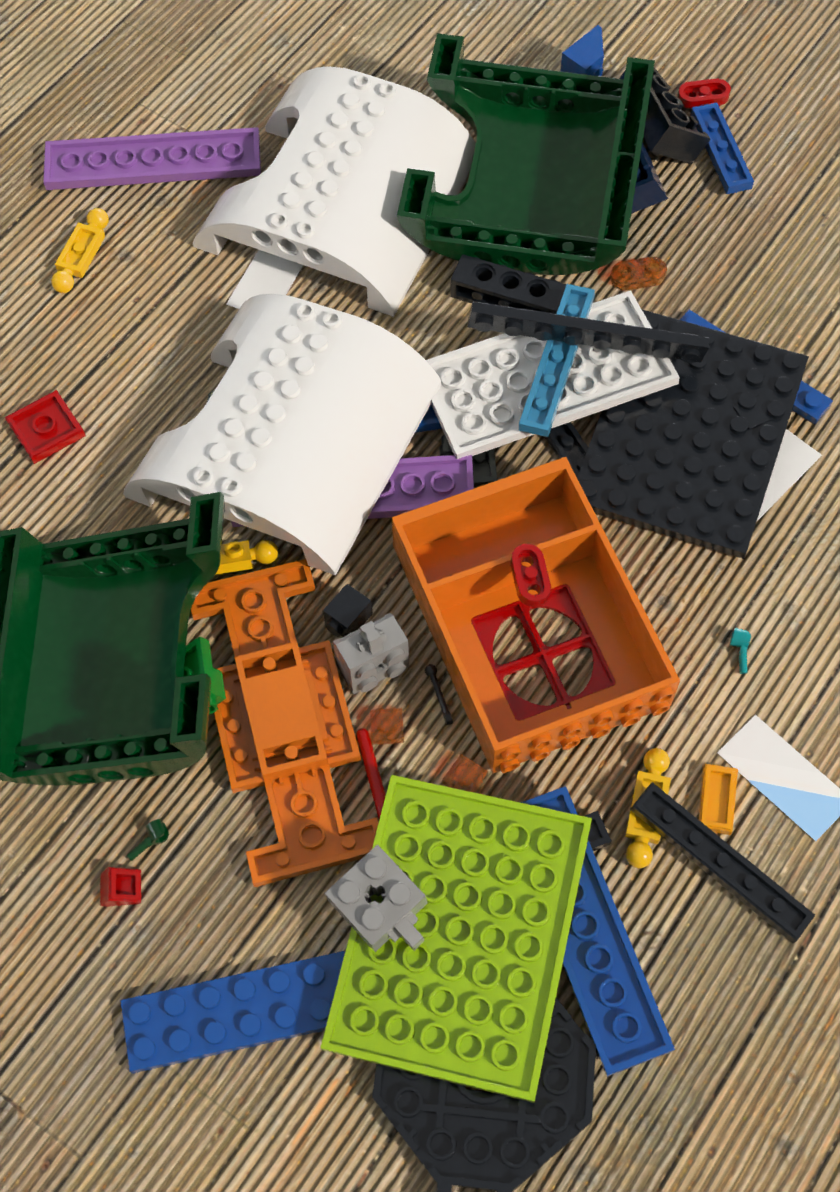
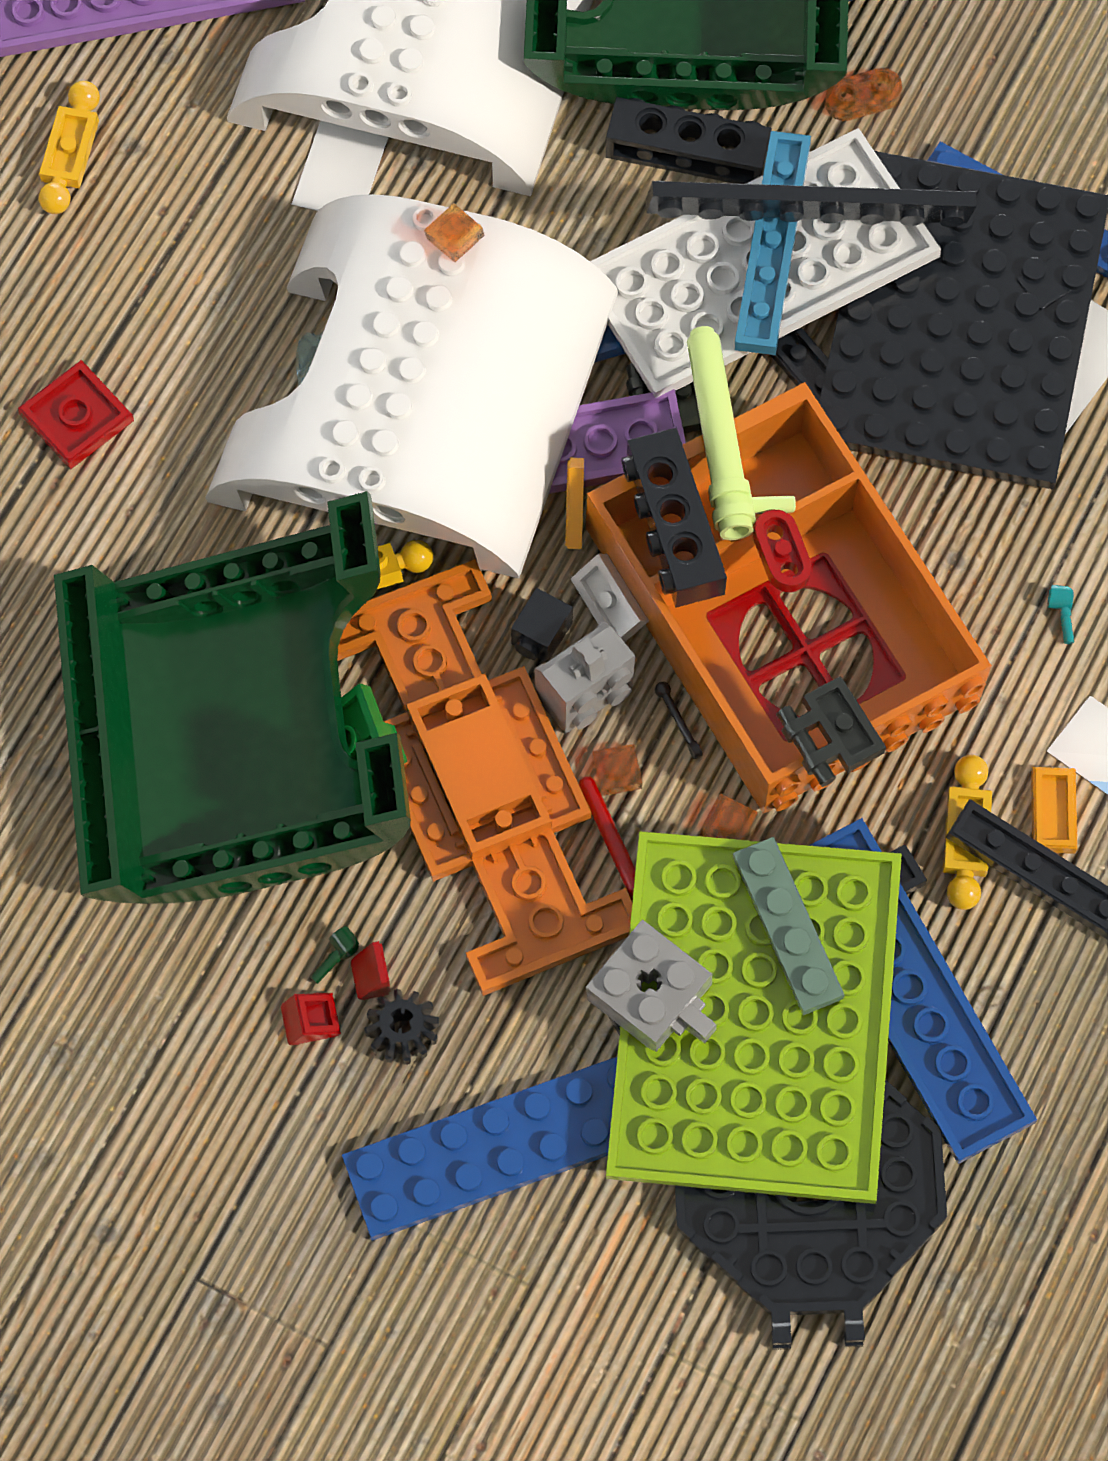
camera: 10 degrees left, 5 degrees up
(173, 857) = (370, 972): none -> red slope
(199, 899) = (402, 1010): none -> black gear
(323, 321) = (454, 232): none -> clear orange plate
(384, 528) = (574, 503): none -> light orange tile
(401, 598) = (609, 596): none -> white plate
(450, 496) = (664, 456): none -> black brick
(495, 865) = (788, 926): none -> sand green plate
(496, 526) = (729, 489): none -> yellowish green cylinder
(557, 710) = (843, 725): none -> pearl dark grey plate

